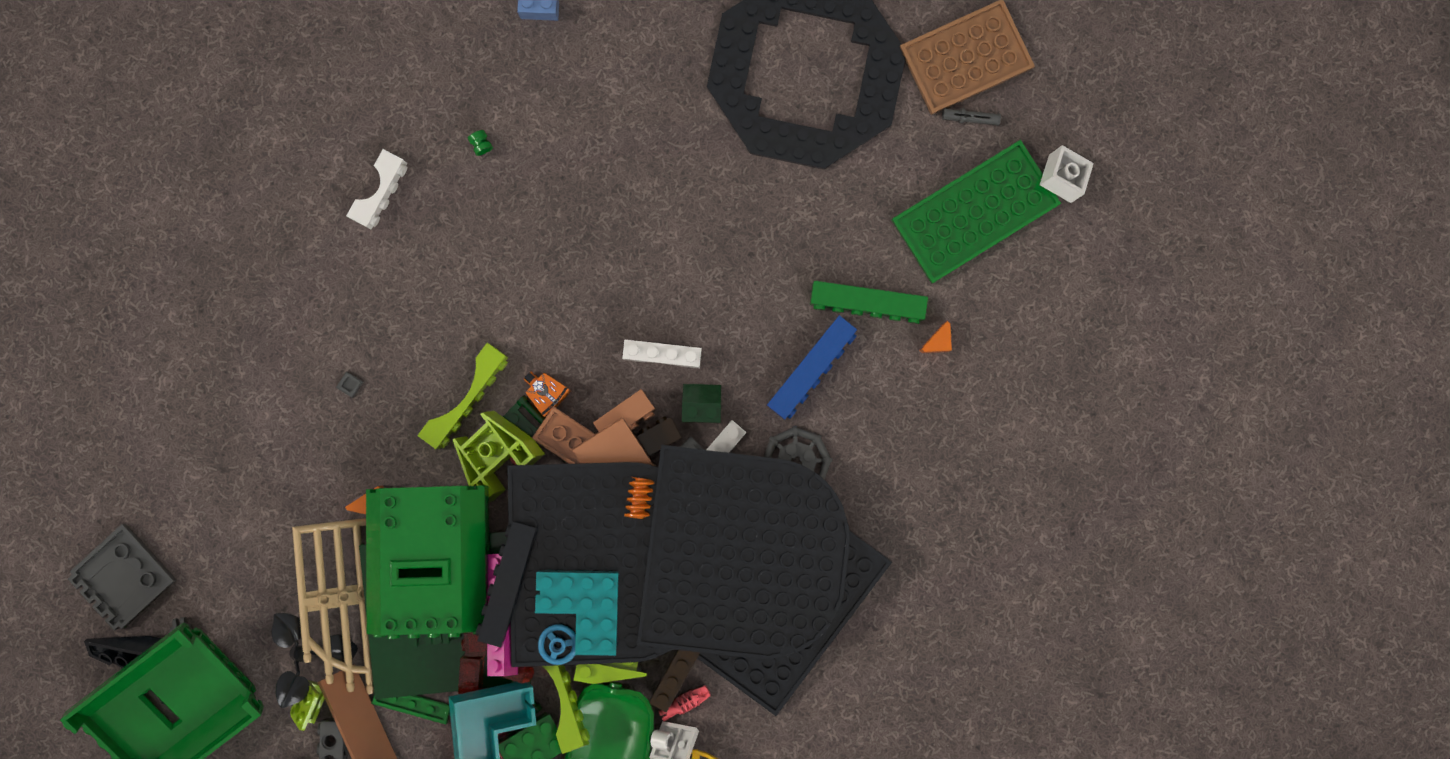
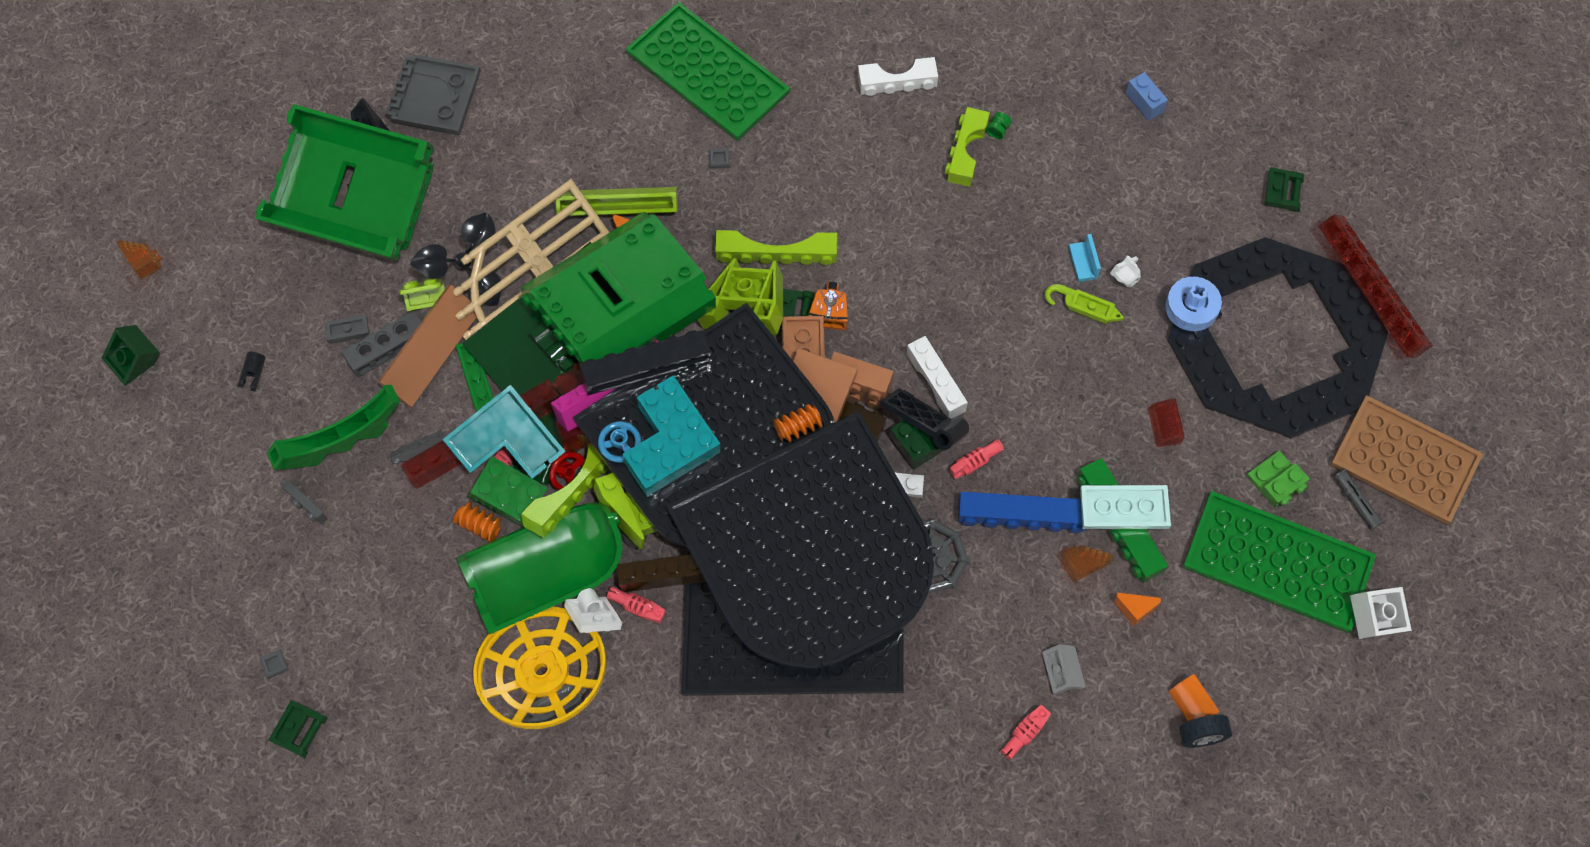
camera: 60 degrees right, 20 degrees down
(260, 338) = (708, 71): none -> green plate
(337, 490) = (624, 200): none -> lime brick
(466, 163) = (963, 166): none -> lime arch
(541, 687) = (560, 466): none -> red piece
(643, 165) = (1085, 259): none -> medium azure panel
(677, 141) = (1127, 271): none -> white piece
(679, 194) = (1085, 304): none -> lime plate
(714, 382) = (945, 430): none -> black piece
(746, 371) = (975, 459): none -> coral hinge
(753, 109) = (1198, 294): none -> light blue piece
(817, 209) = (1166, 423): none -> clear red brick
(865, 295) = (1125, 507): none -> light aqua plate
(880, 353) = (1084, 561): none -> clear orange slope
(916, 161) = (1278, 479): none -> bright green plate
(946, 427) = (1063, 668): none -> light grey panel
(971, 487) = (1026, 731): none -> coral hinge
(1033, 354) = (1193, 699): none -> orange brick
(1062, 365) = (1205, 731): none -> black wheel

